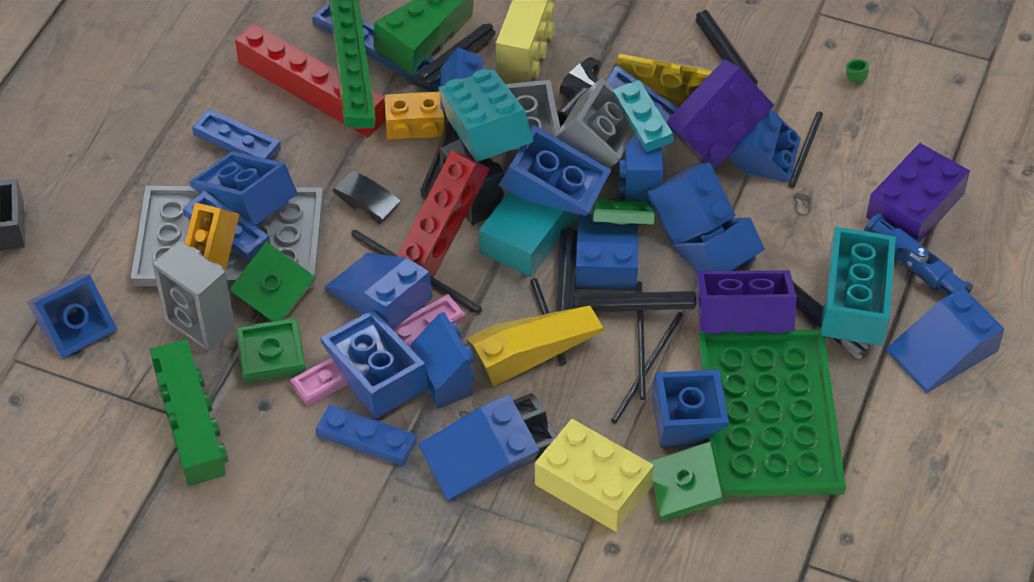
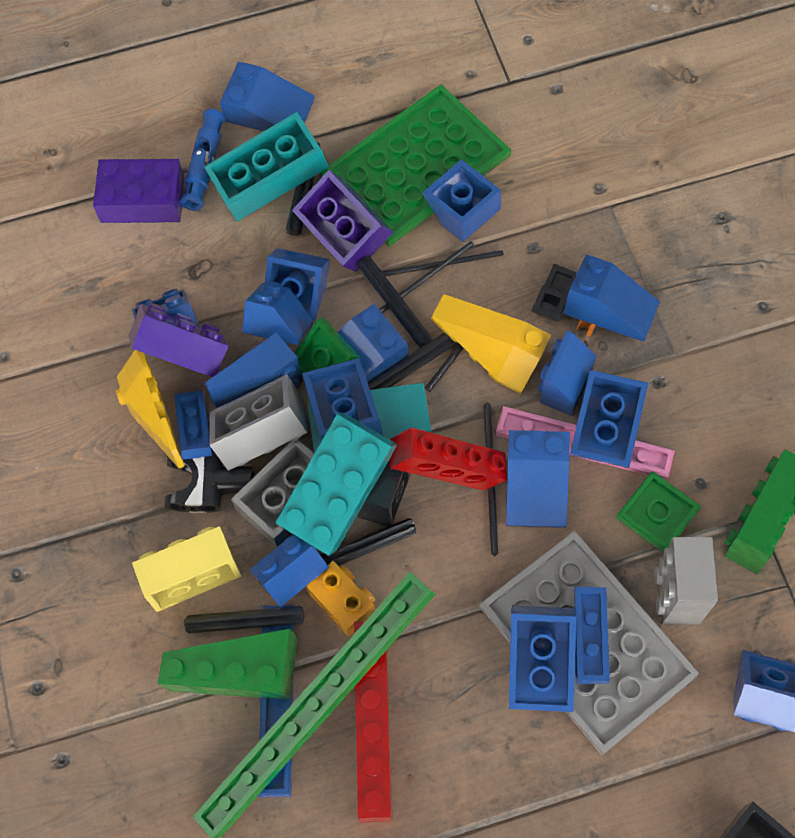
camera: 125 degrees left, 15 degrees up
(212, 232) = (629, 615): light orange brick -> none
(235, 136) = (484, 730): plate -> none
(272, 283) = (607, 555): green plate -> none
(366, 435) = (661, 392): blue plate -> none
(367, 194) = (455, 569): black slope -> none
(593, 474) = (564, 221): light yellow brick -> none
(643, 115) = (231, 380): teal plate -> none
(687, 482) = (518, 169): plate -> none
(721, 42) = (71, 420): black axle -> none
(805, 150) = (122, 304): black axle -> none
(857, 70) = (28, 303): green hinge -> none

